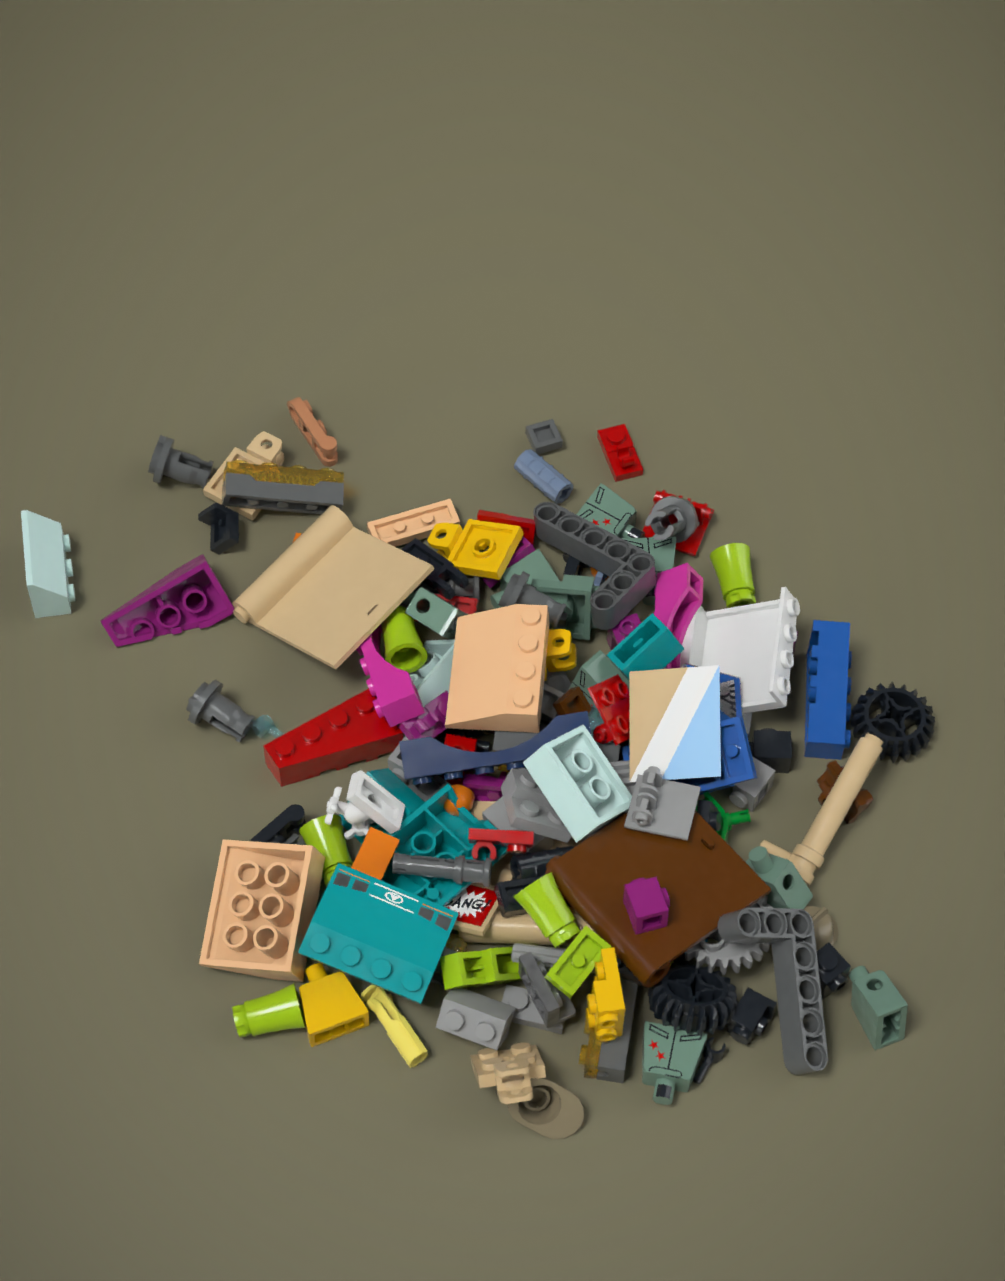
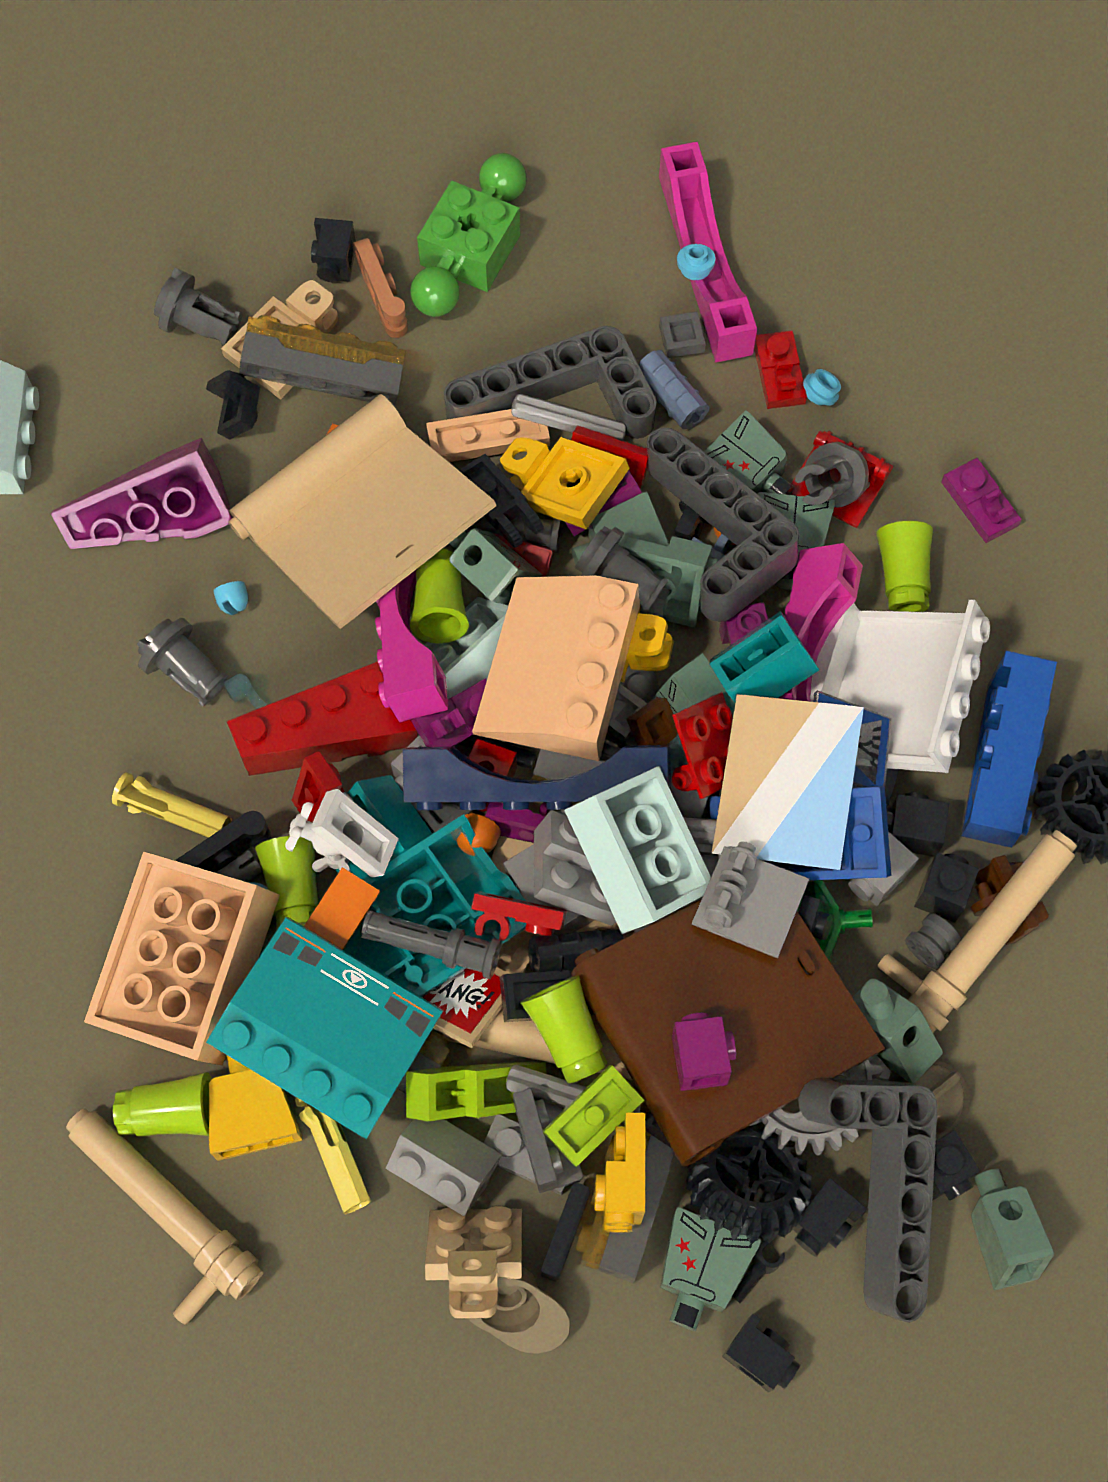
camera: 10 degrees right, 10 degrees up
(228, 813) = (167, 806): none -> light yellow piece
(245, 663) = (231, 597): none -> medium azure hinge
(272, 408) = (333, 249): none -> black brick
(320, 1101) = (213, 1250): none -> tan cylinder
(336, 774) = (314, 781): none -> red plate
(373, 385) = (469, 235): none -> bright green brick
(459, 473) = (557, 378): none -> dark grey beam
(467, 505) = (563, 417): none -> light grey axle
(546, 383) = (696, 261): none -> medium azure plate
(568, 409) = (718, 296): none -> dark pink arch
(569, 1052) = (565, 1232): none -> black tile
(653, 461) = (822, 387): none -> medium azure plate
(719, 1111) = (762, 1356): none -> black brick
(781, 525) = (981, 500): none -> magenta plate
(795, 826) = (933, 940): none -> dark grey wheel
(798, 789) = (946, 886): none -> black brick

